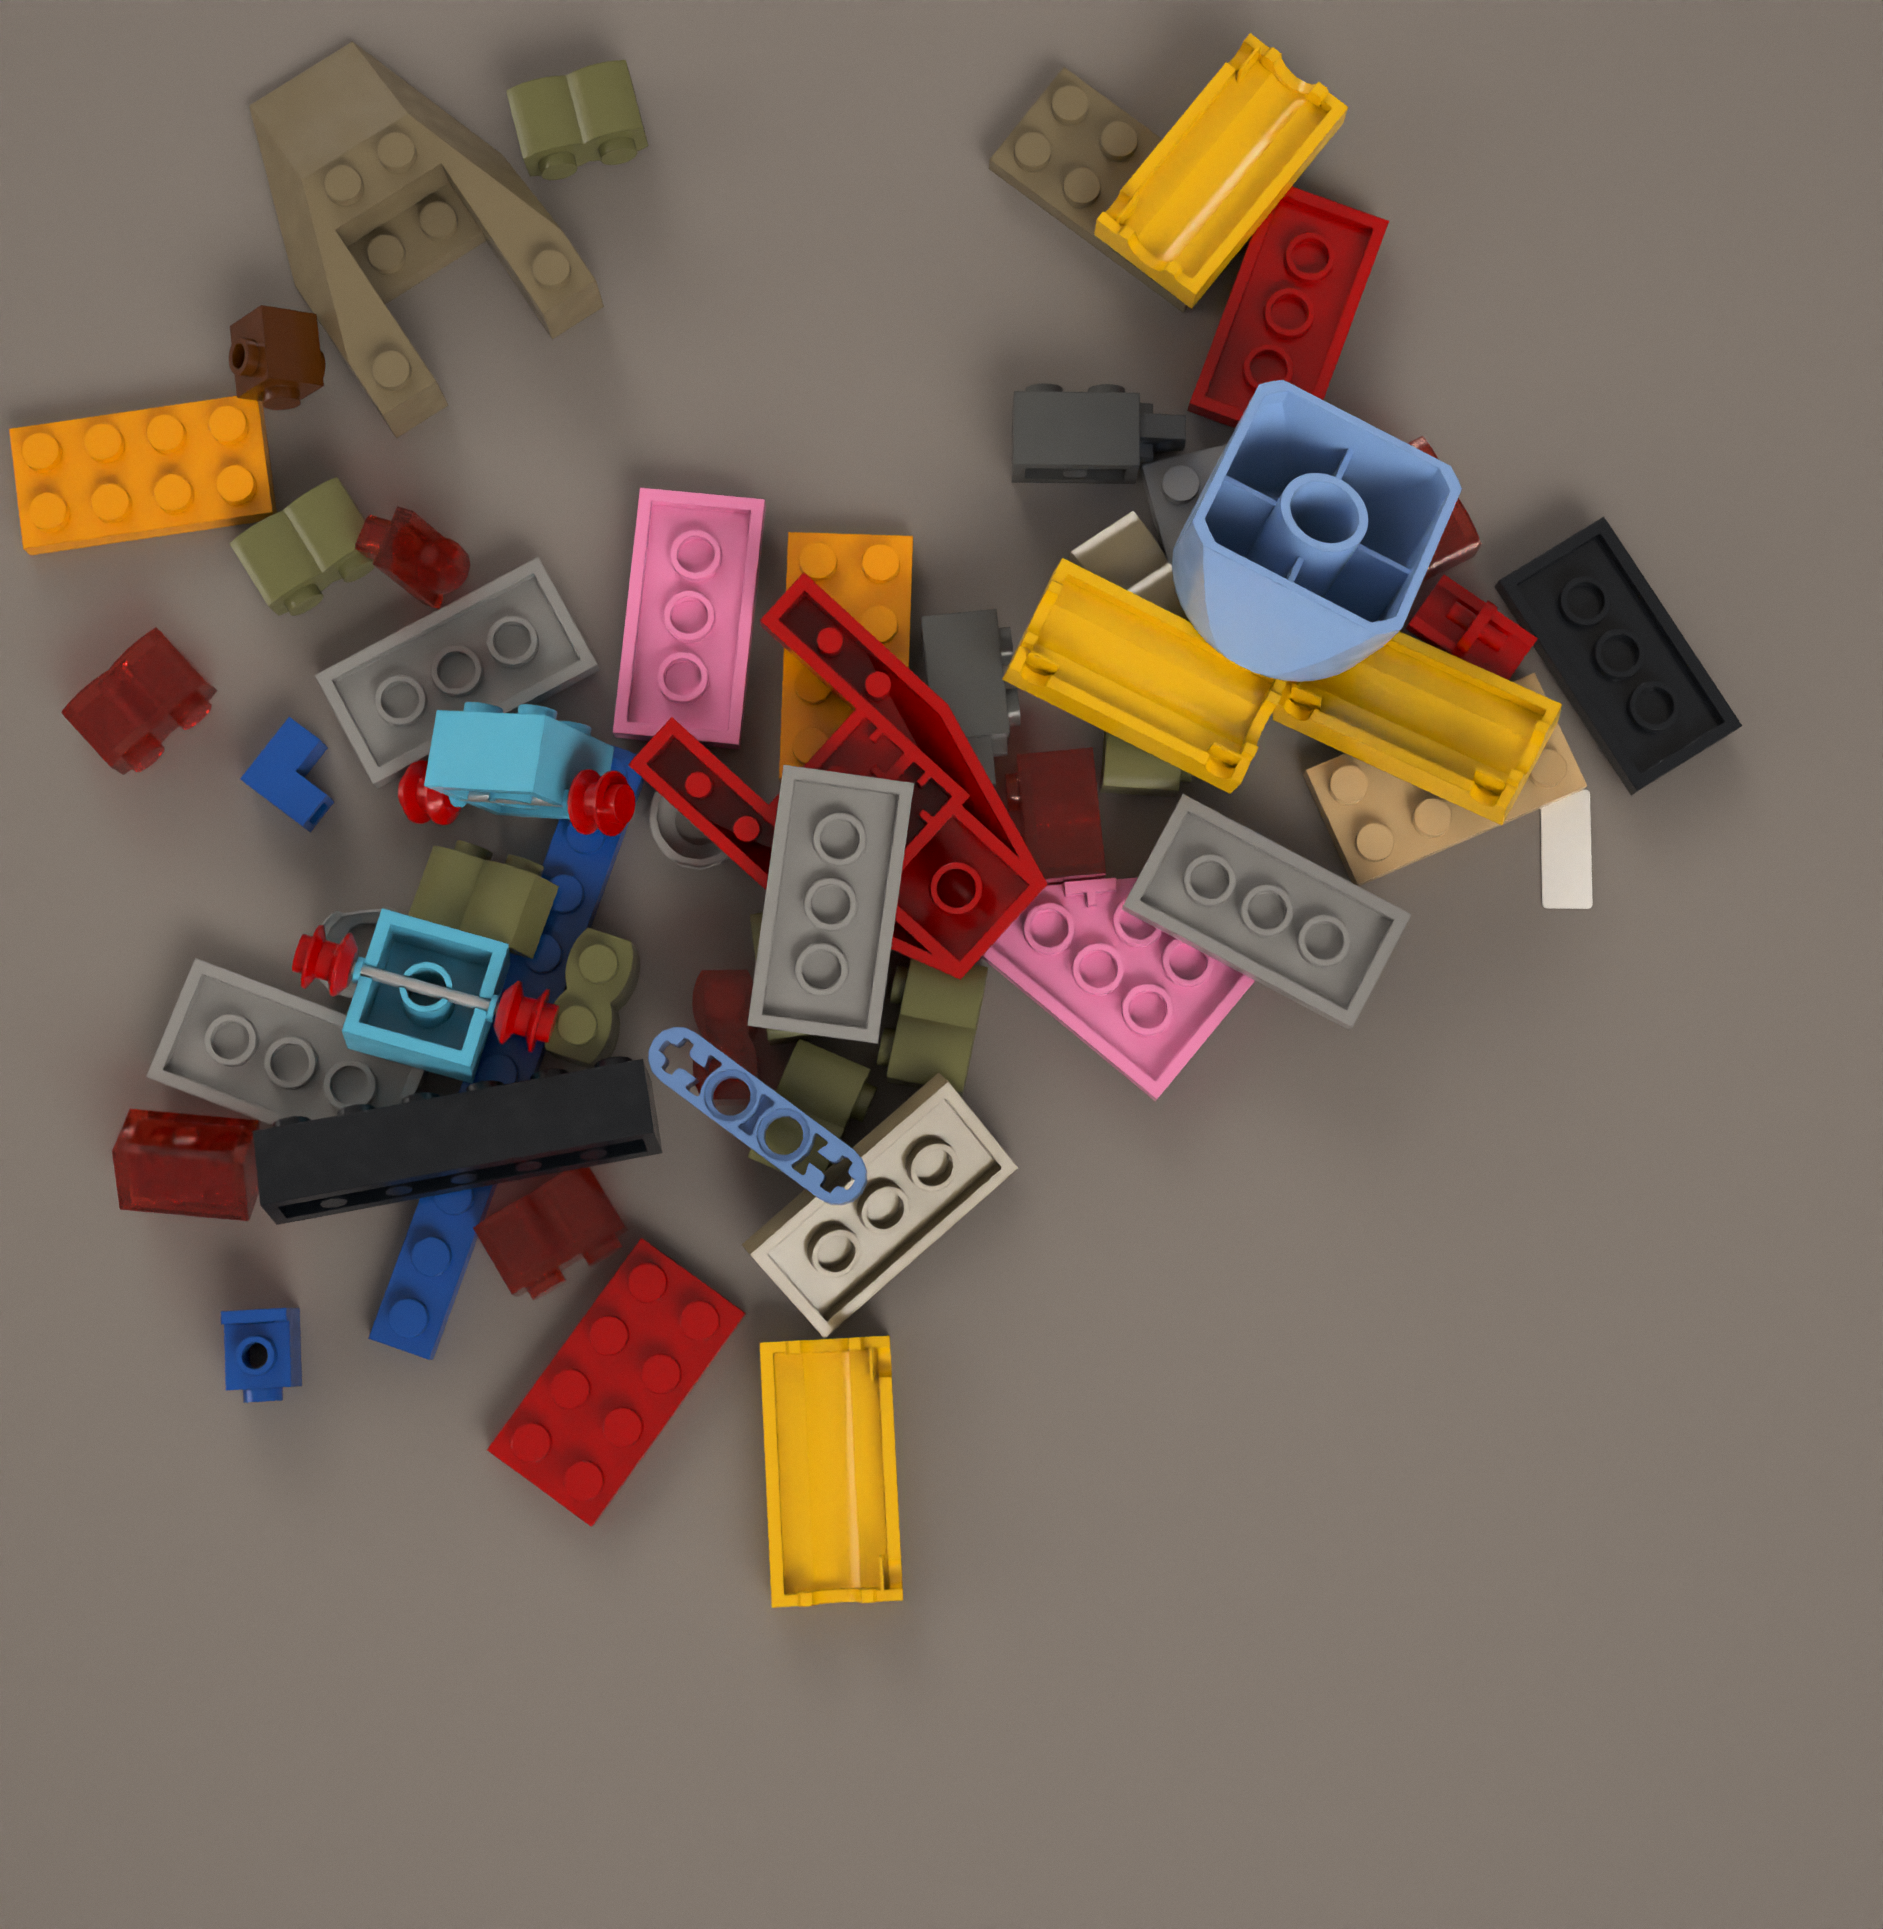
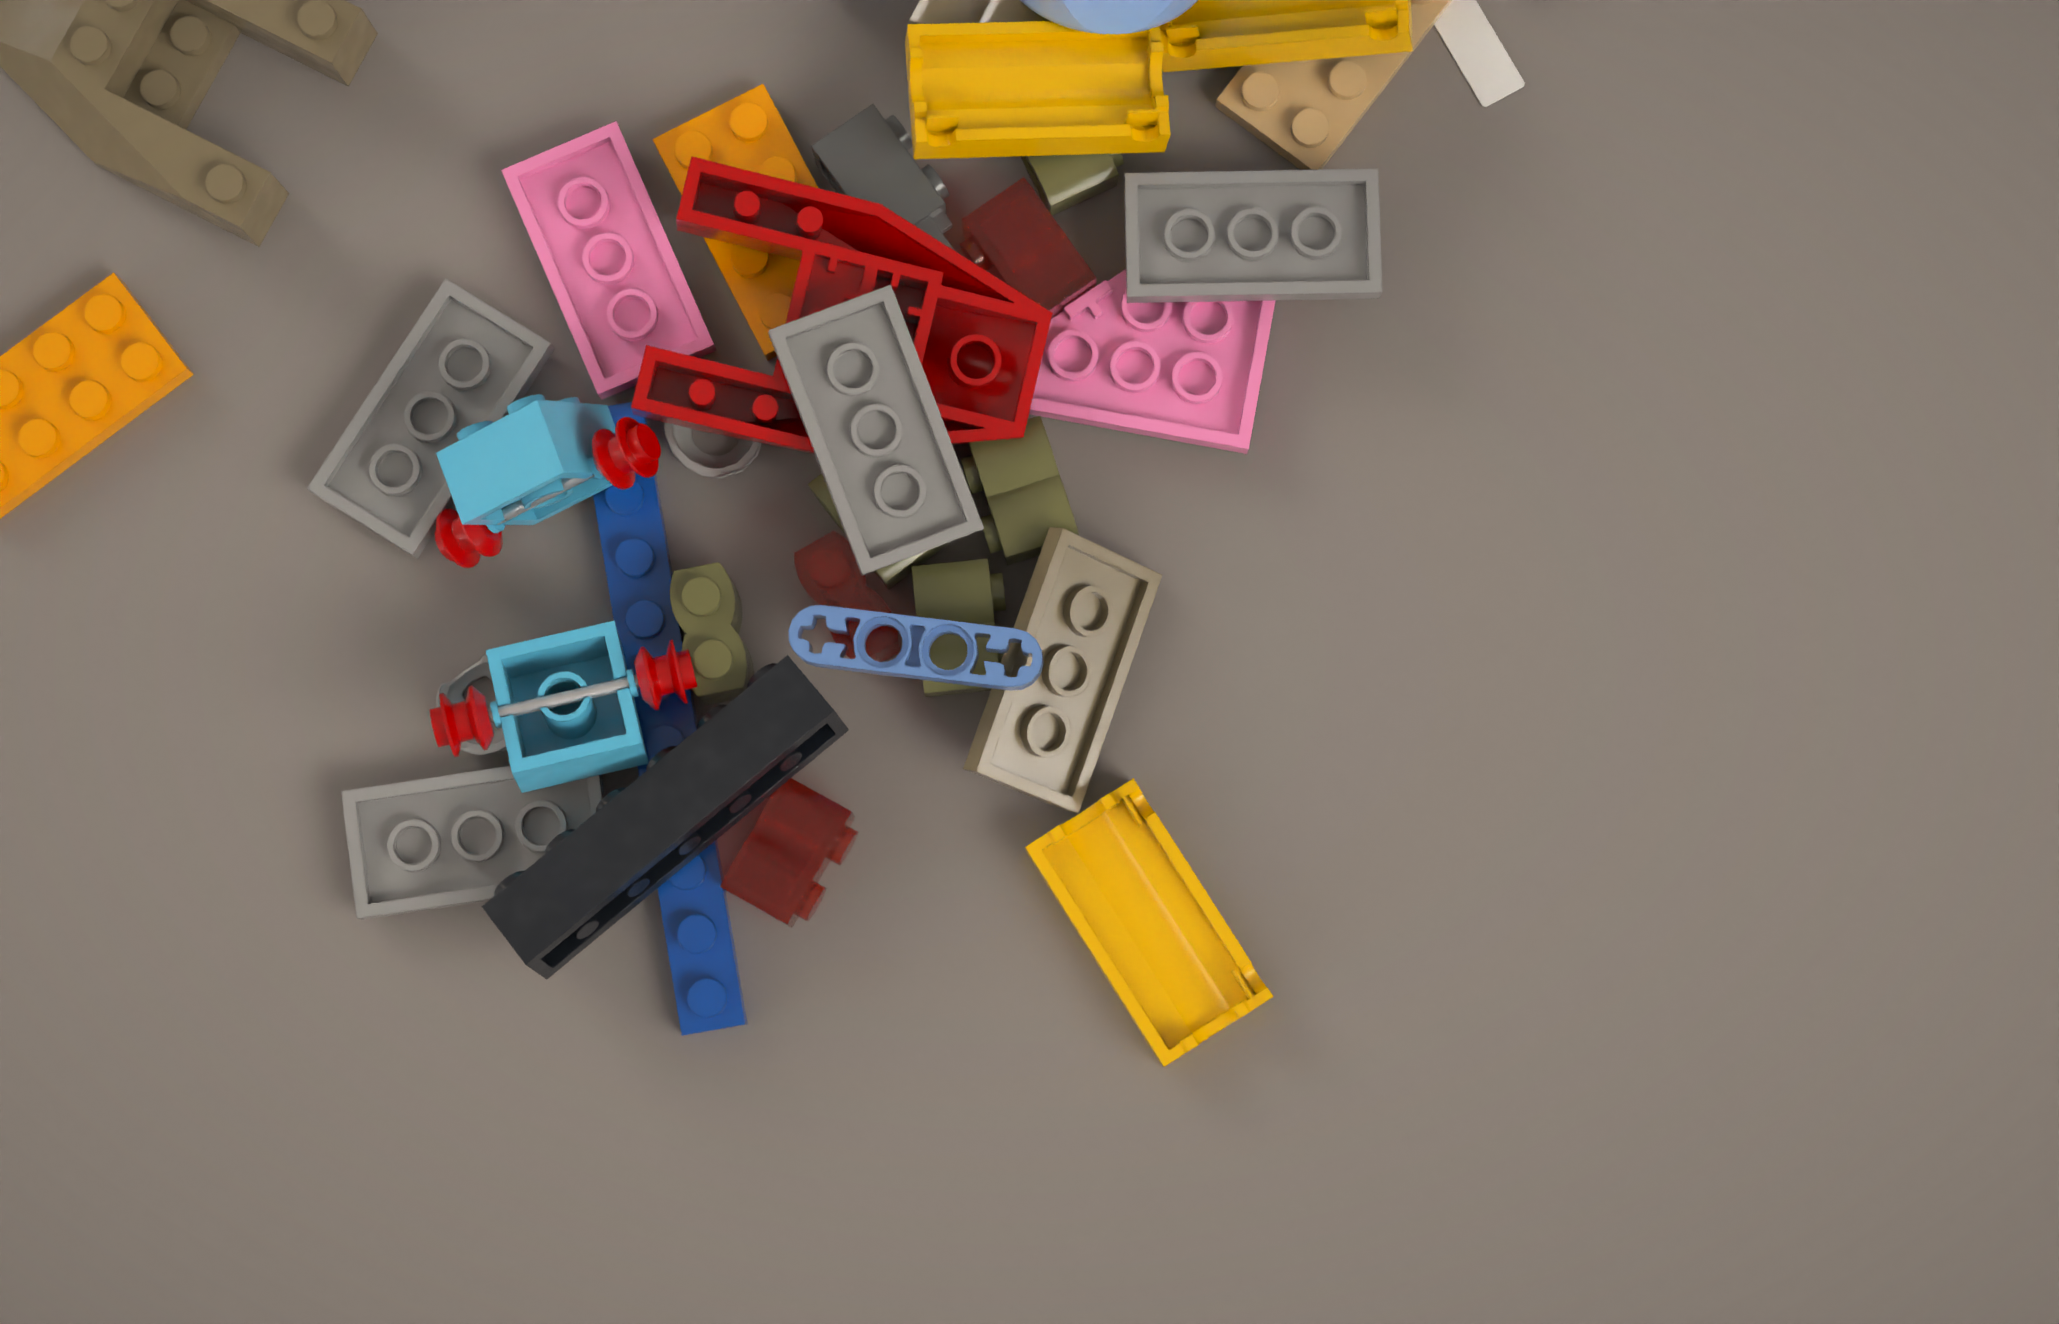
camera: 25 degrees left, 0 degrees up
(140, 703) = (165, 597): clear red brick -> none
(193, 1171) = (438, 972): clear red brick -> none
(276, 356) = (114, 229): reddish brown brick -> none
(281, 772) = (326, 595): blue piece -> none
(281, 1336) = (599, 1072): blue brick -> none
(304, 548) = (237, 381): olive brick -> none
(414, 555) = (337, 334): clear red hips -> none
(485, 896) = (568, 593): olive brick -> none
(616, 1382) = (919, 951): red plate -> none

